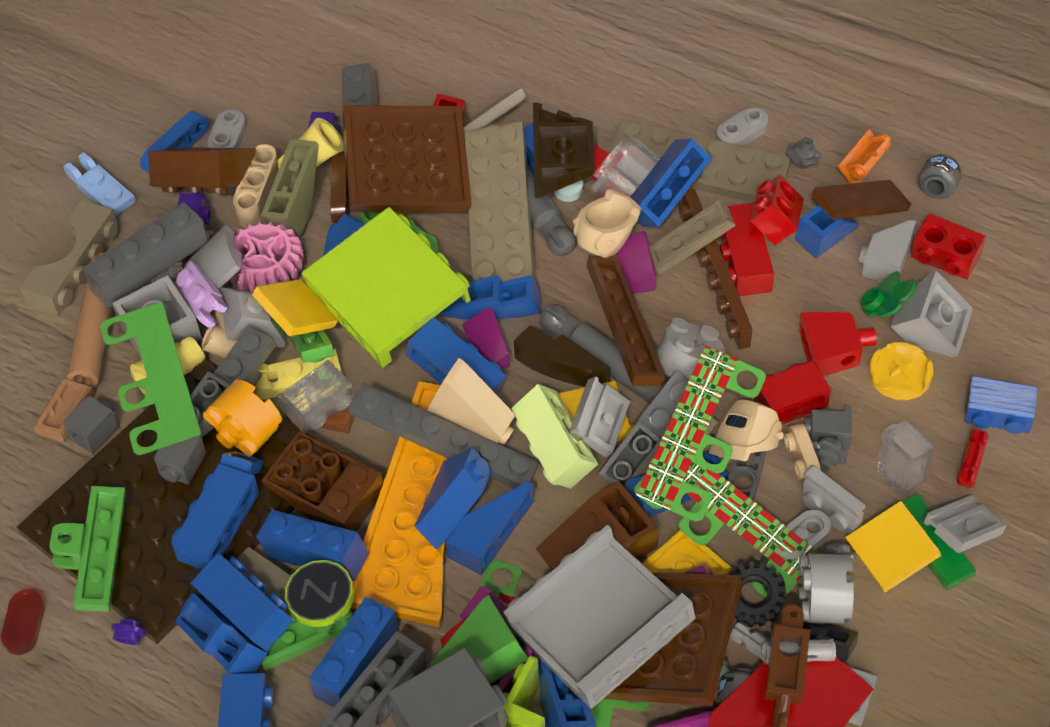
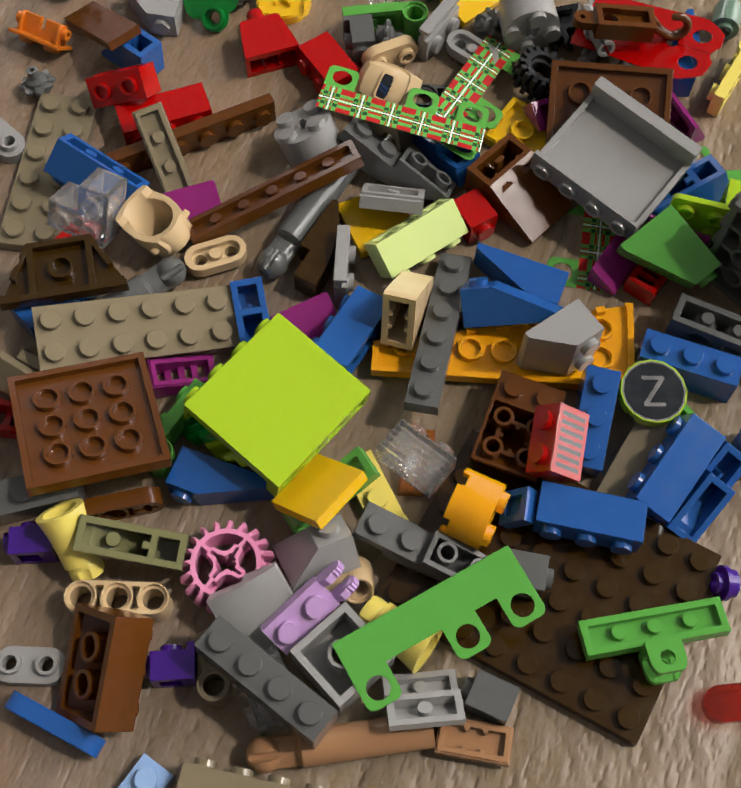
camera: 105 degrees left, 10 degrees up
(100, 368) = (425, 701): none -> light grey slope
(285, 492) = (557, 443): none -> red brick
(391, 522) = (562, 341): none -> light grey slope
(456, 222) = (166, 366): none -> magenta slope
(531, 368) = (344, 255): none -> light grey plate
(571, 493) = (477, 216): none -> red brick
(575, 280) = (215, 255): none -> tan plate
(860, 455) = (403, 15): none -> bright green plate

